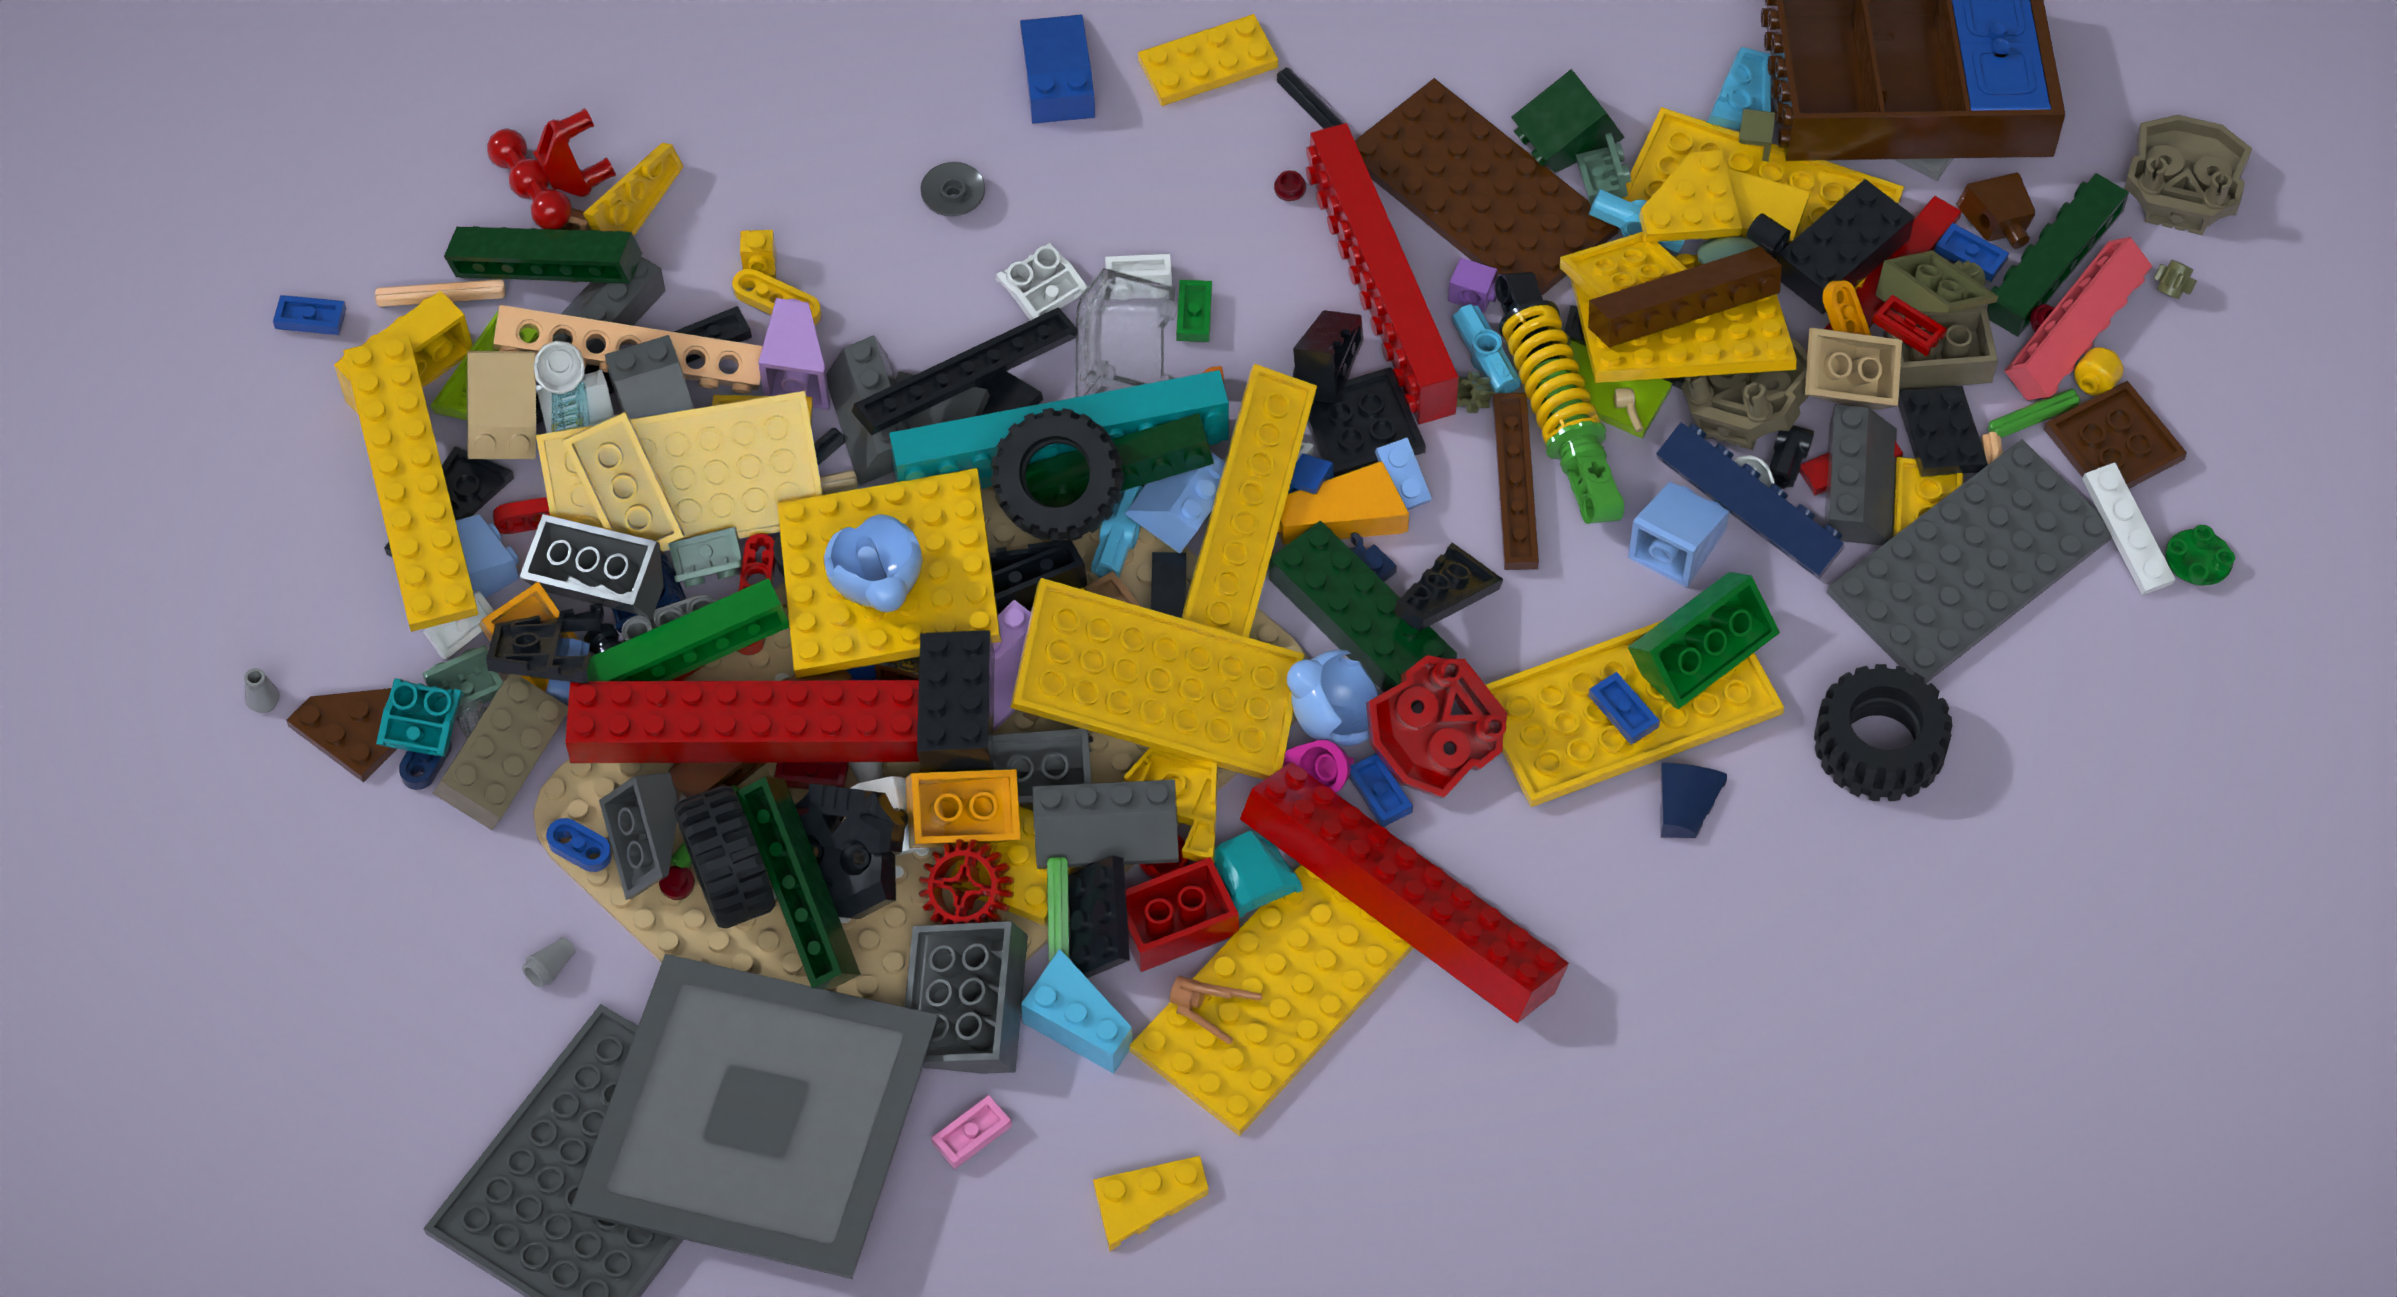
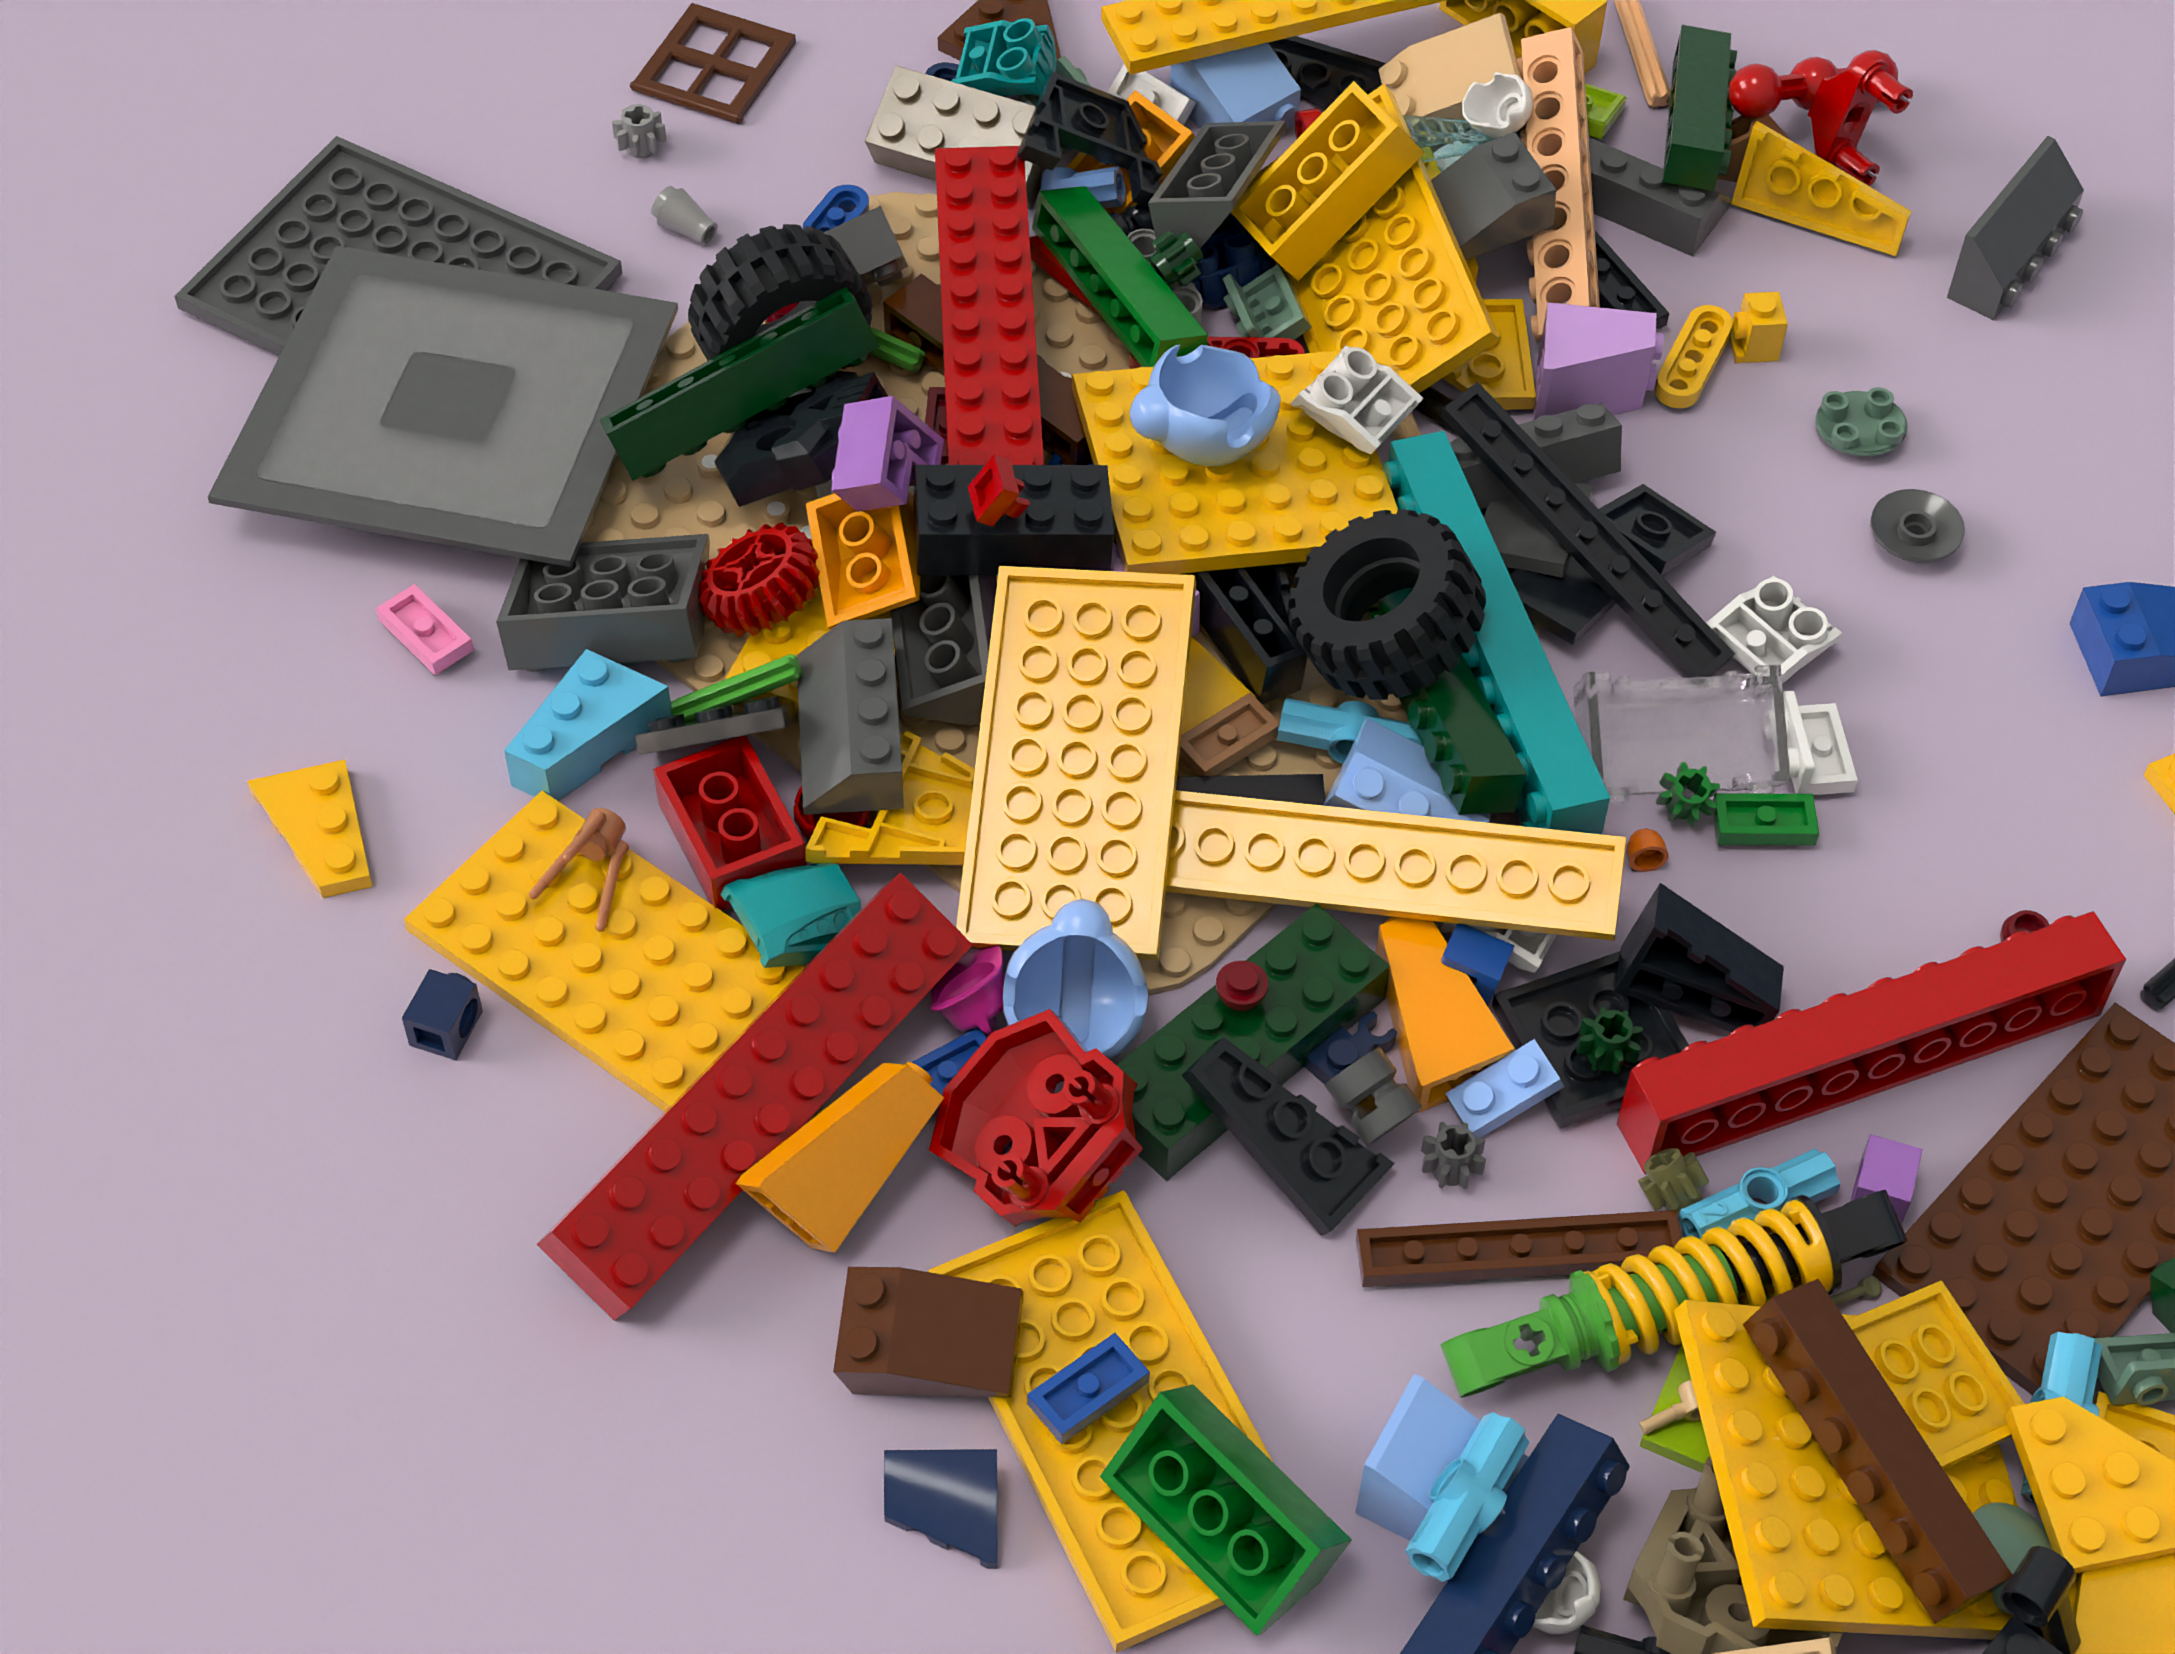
camera: 85 degrees right, 5 degrees down
(358, 948) = (755, 78): none -> reddish brown window
(446, 995) = (639, 131): none -> light grey gear
(675, 599) = (1176, 258): none -> dark green gear
(687, 87) = (2017, 232): none -> dark grey slope
(849, 208) = (1861, 421): none -> sand green dish
(852, 485) = (1358, 399): none -> white slope
(911, 771) = (879, 453): none -> medium lavender brick
(943, 337) = (1658, 528): none -> black plate
(967, 689) = (996, 492): none -> red tile
(1175, 348) = (1689, 779): none -> green gear
(1323, 1097) = (442, 1014): none -> dark blue brick
(1344, 597) = (1241, 985): none -> dark red plate
(1379, 407) = (1610, 1040): none -> dark green gear
(1412, 542) = (1368, 1077): none -> dark grey wheel
(1449, 508) = (1453, 1155): none -> dark grey gear
(1454, 835) = (842, 1157): none -> light orange slope
(1584, 798) = (927, 1334): none -> reddish brown slope
(1708, 504) = (1467, 1497): none -> medium azure piece

